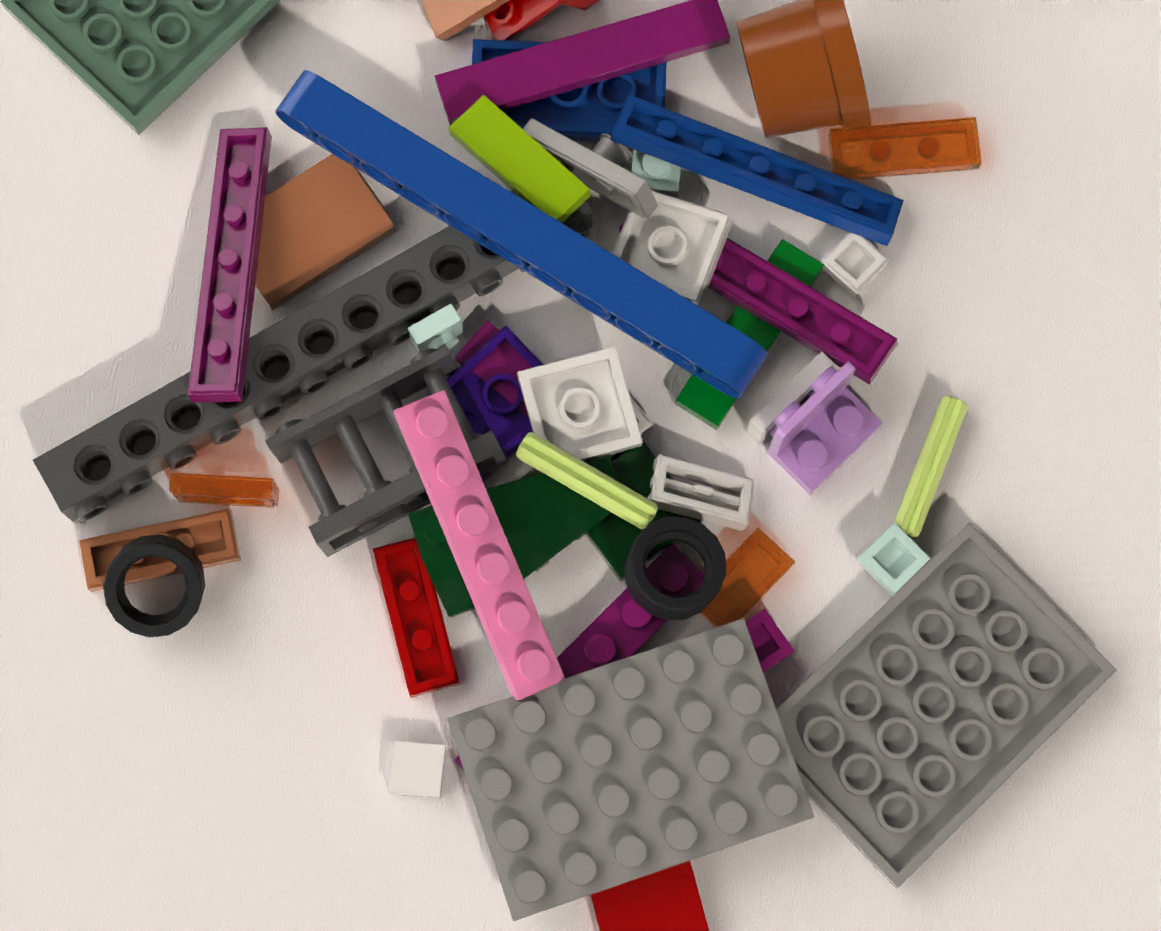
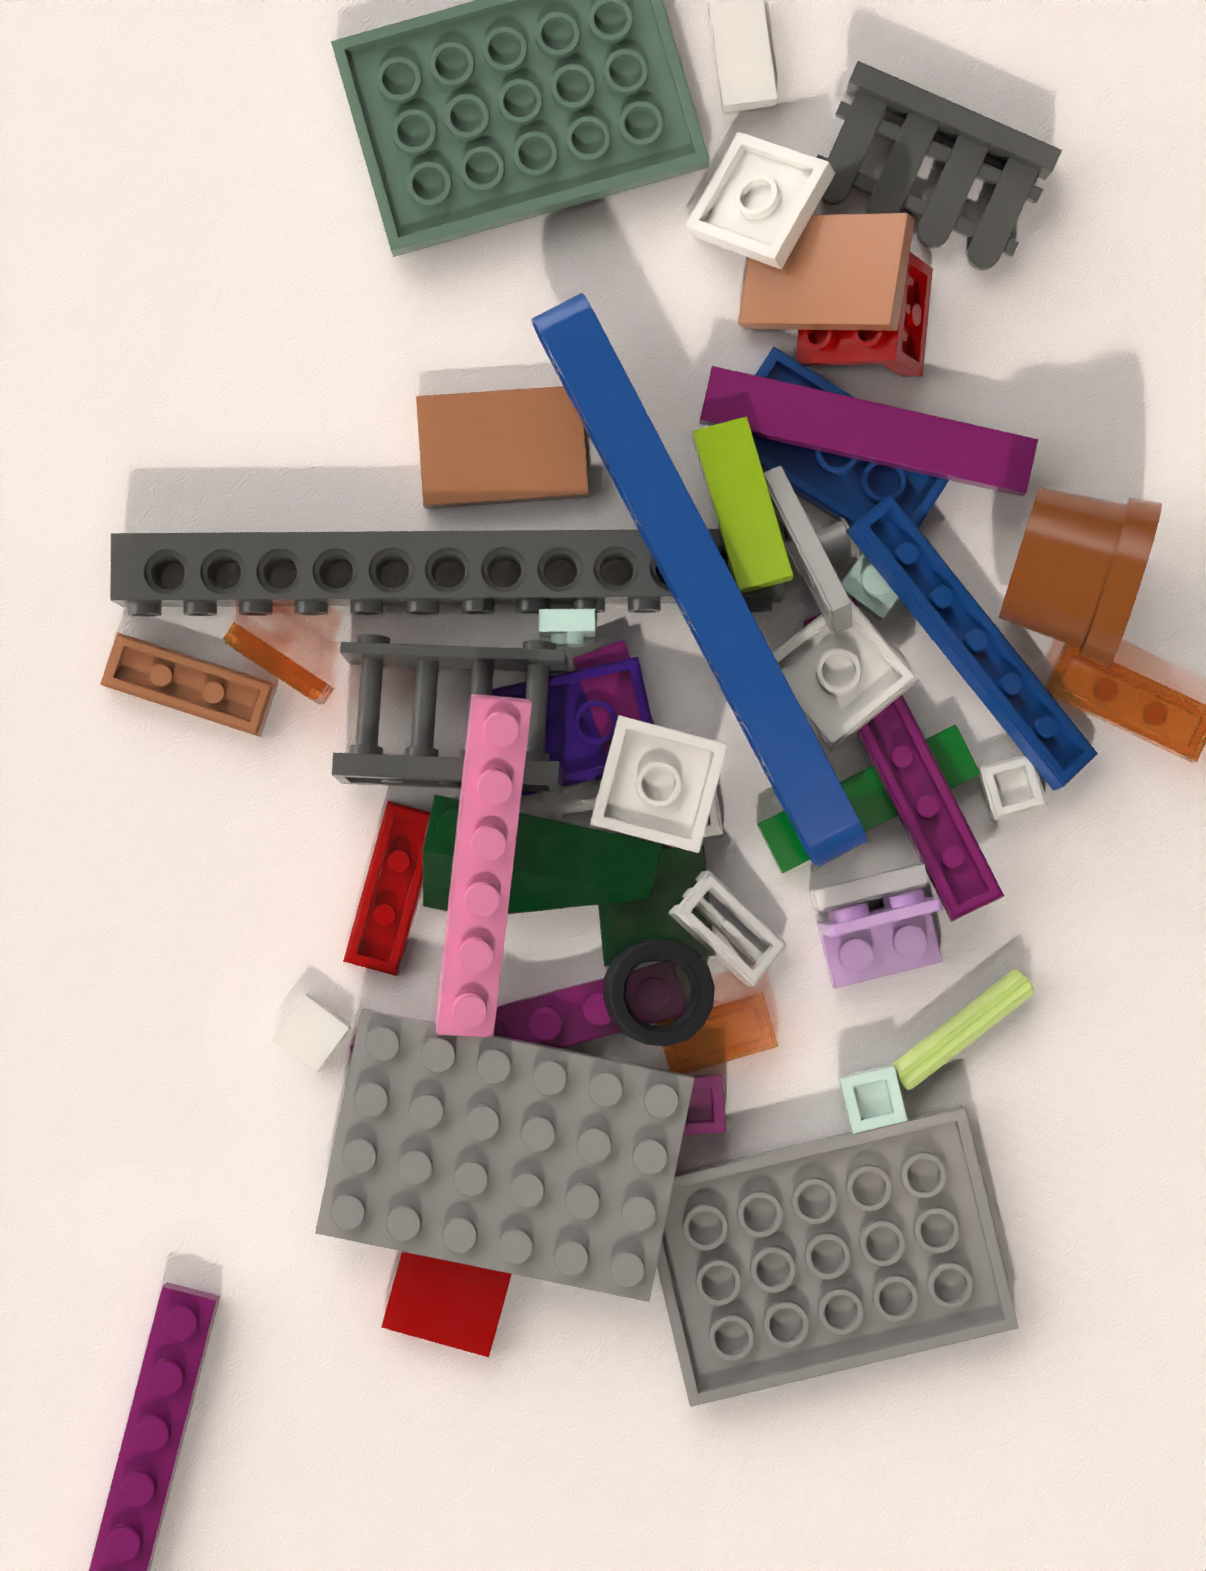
camera: 30 degrees right, 10 degrees up
(144, 623) = (134, 749): black tyre -> none
(230, 266) = (405, 445): magenta tile -> none
(586, 480) = (622, 861): yellowish green axle -> none

